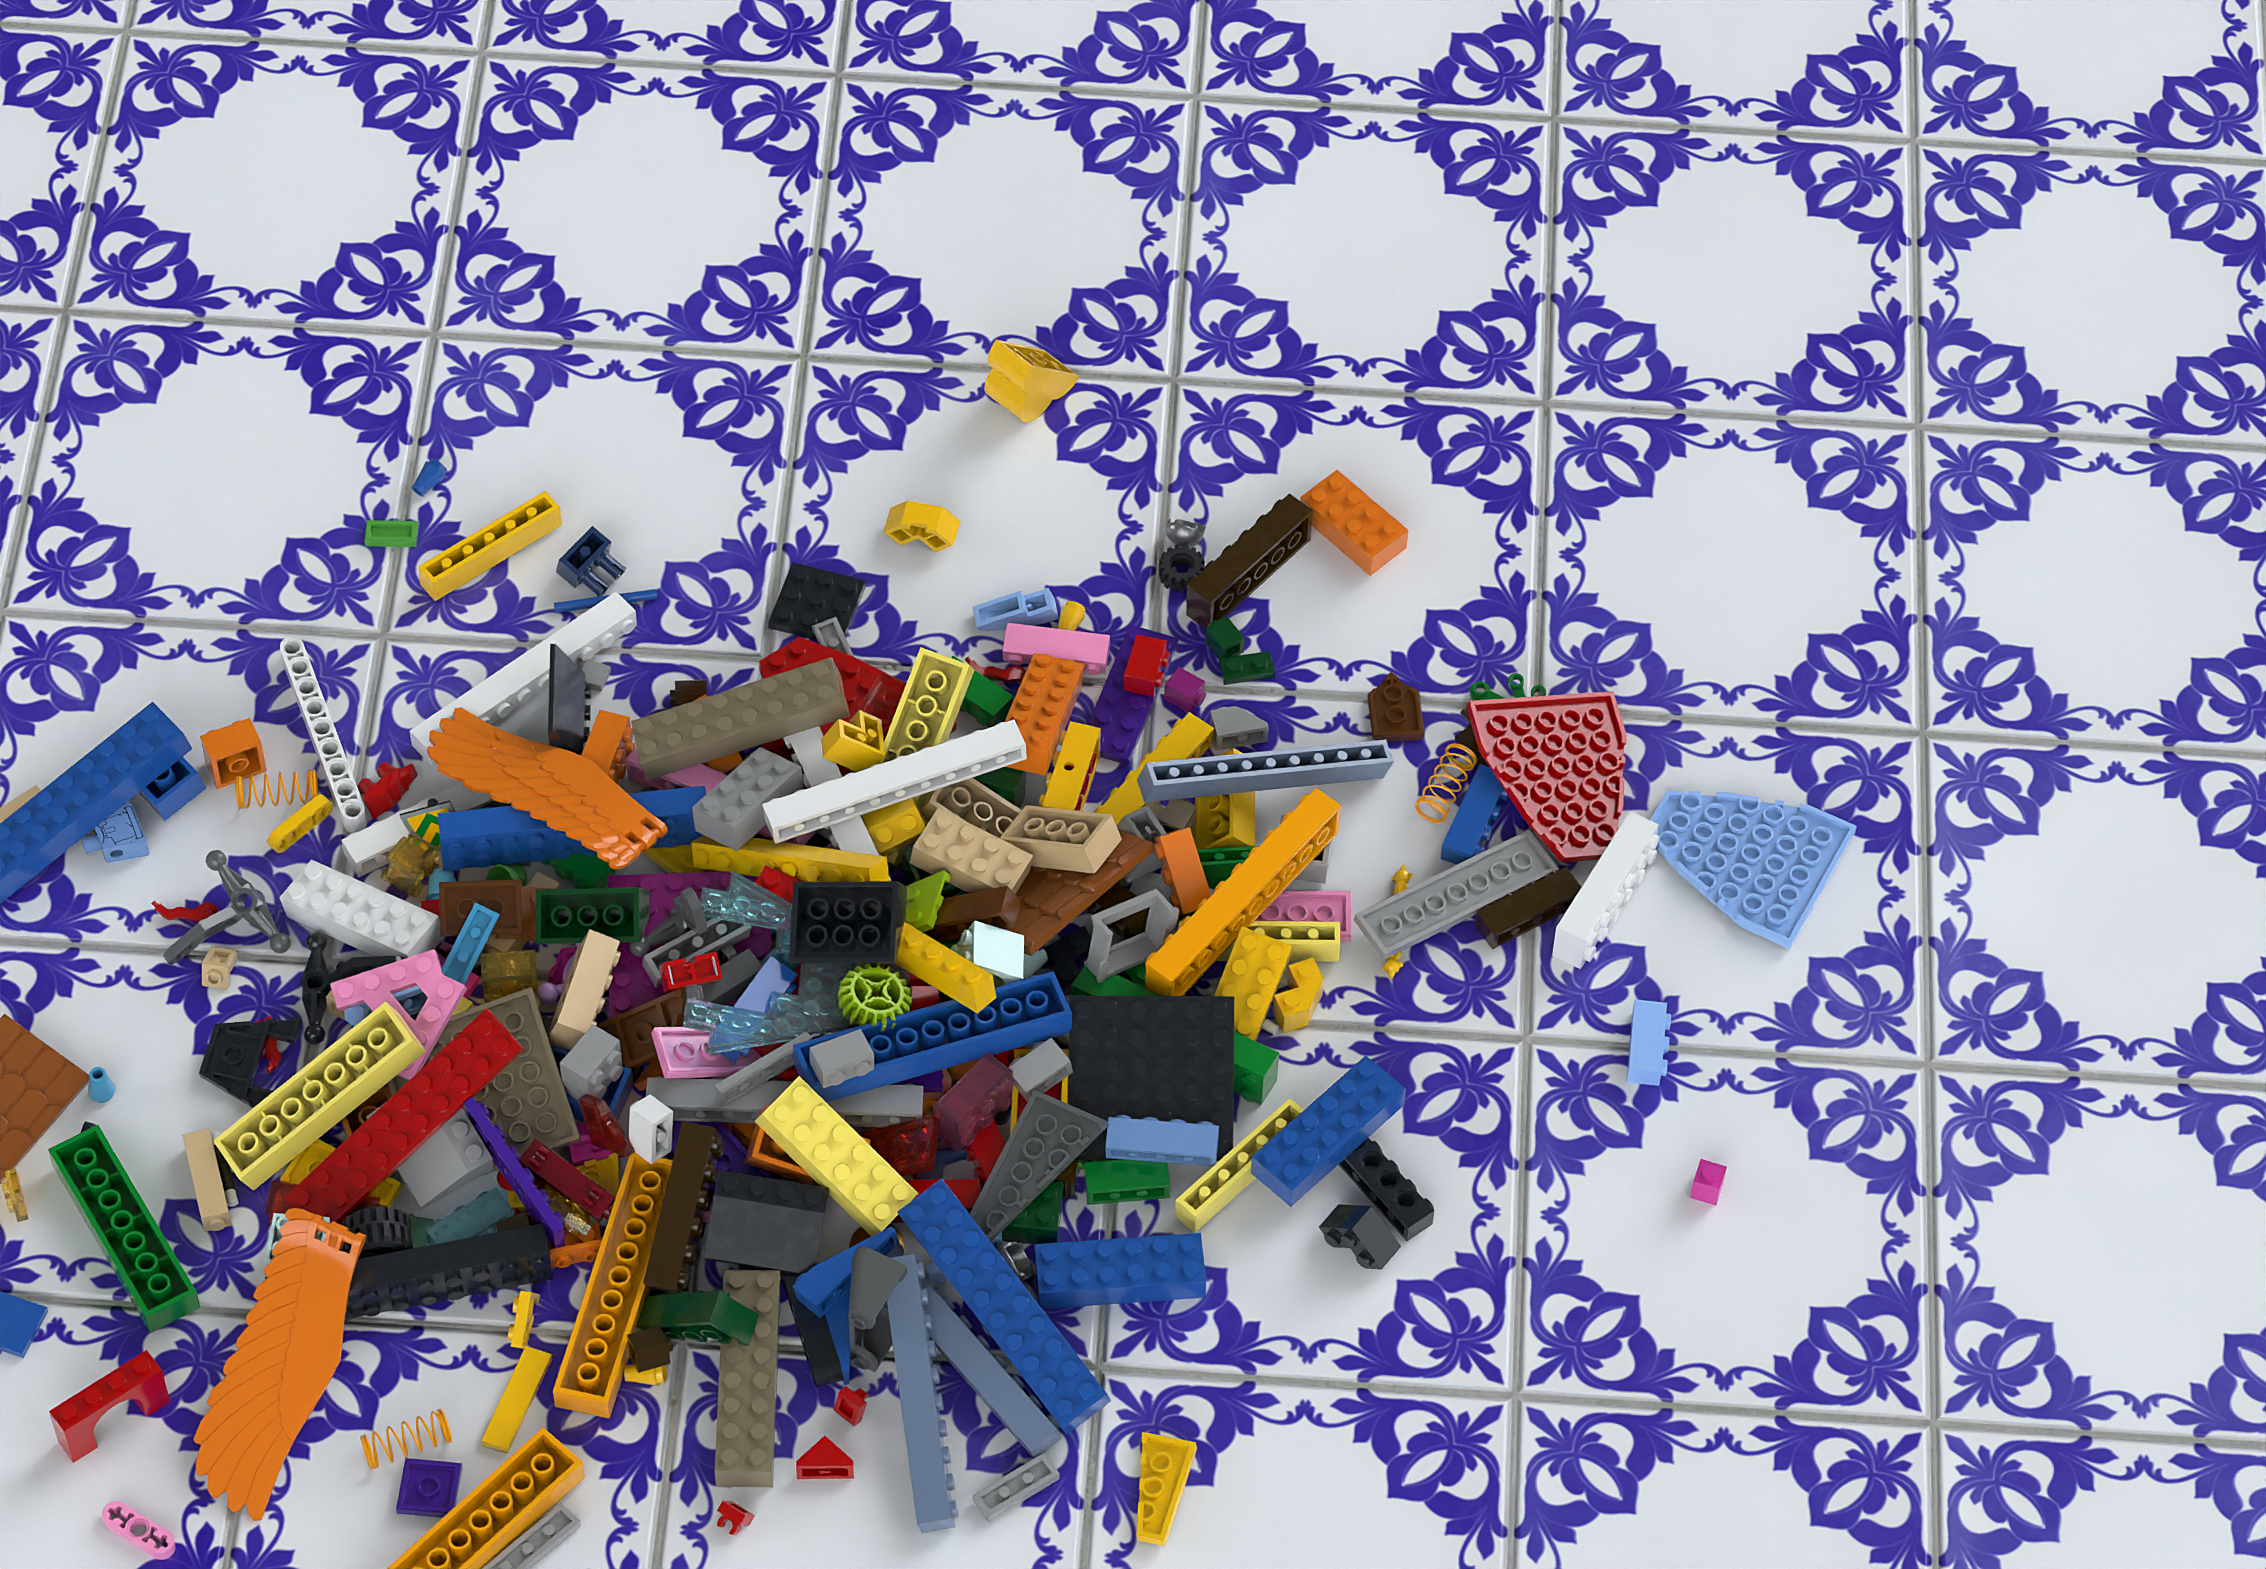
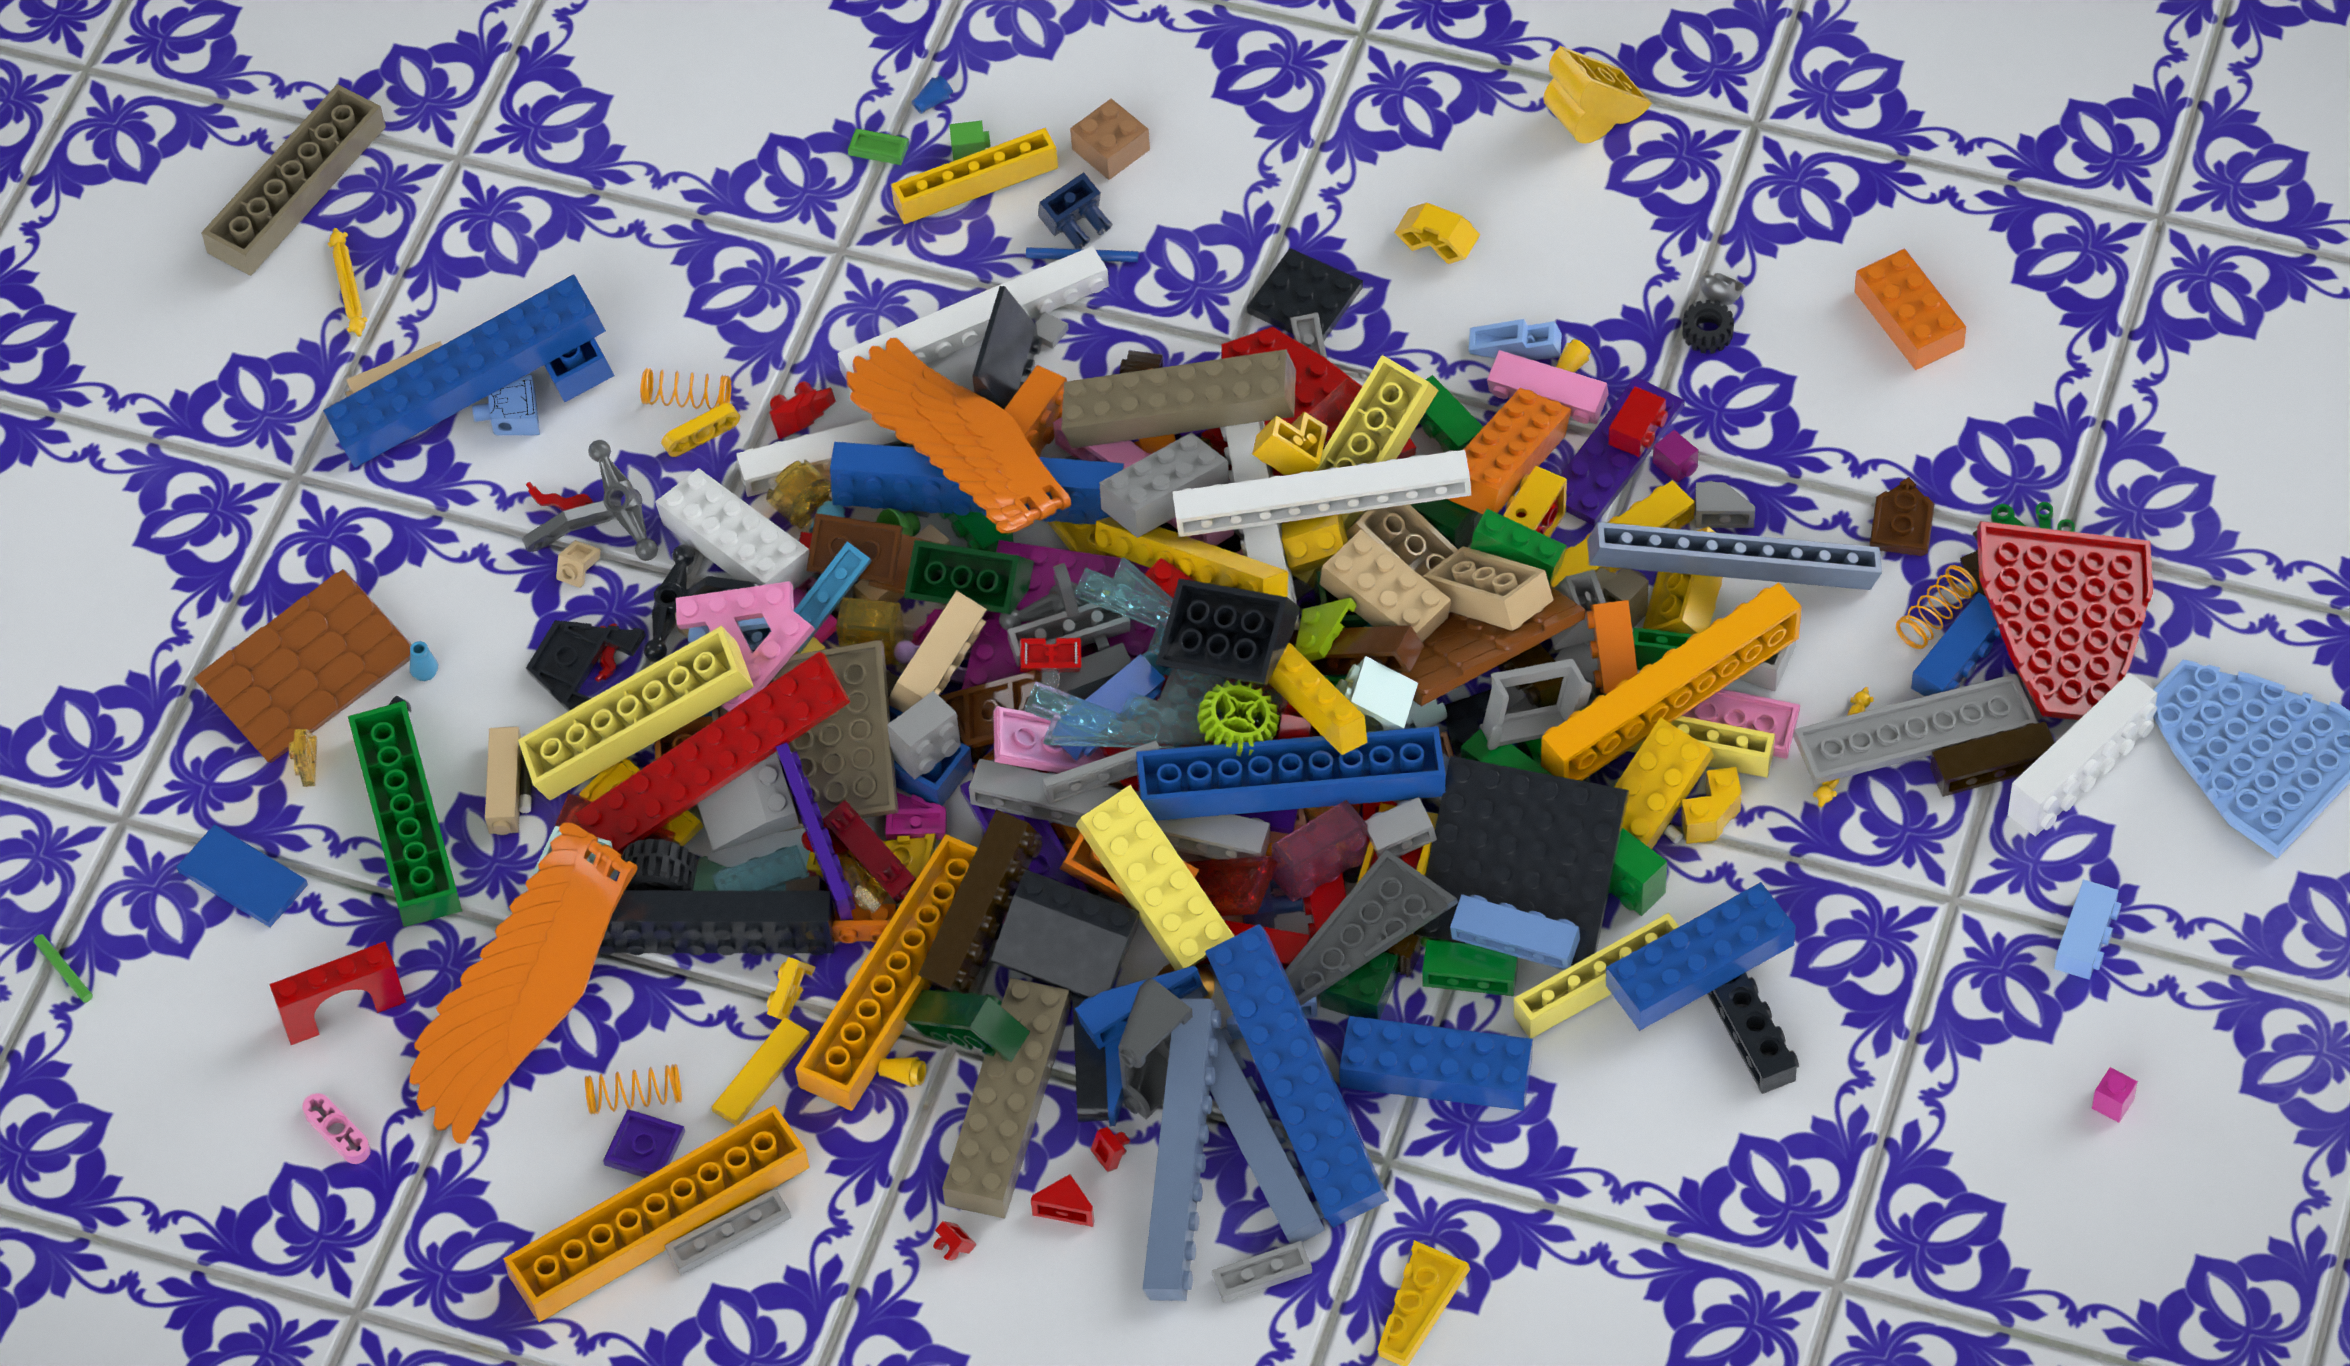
camera: 20 degrees right, 0 degrees up
(233, 752) = (649, 343): orange brick -> none
(323, 743) = (749, 341): white beam -> none
(424, 821) = (819, 447): shield -> none
(474, 514) = (968, 138): none -> bright green brick
(603, 490) = (1110, 139): none -> medium nougat brick
(603, 1126) = (922, 802): clear red wing -> none
(649, 1348) = (908, 1045): dark brown brick -> none
(650, 1128) = (967, 812): white brick -> none
(842, 1058) = (1181, 775): light grey brick -> none
(1007, 675) = (1487, 407): red hair -> none
(1016, 1259) = (1326, 1029): flat silver hair -> none
(1075, 793) = (1518, 543): none -> green brick
(1224, 638) = (1734, 410): dark green brick -> none
(1246, 668) = (1751, 445): dark green plate -> none
(1249, 561) = (1781, 331): dark brown brick -> none
(1362, 1232) = (1711, 1074): black brick -> none

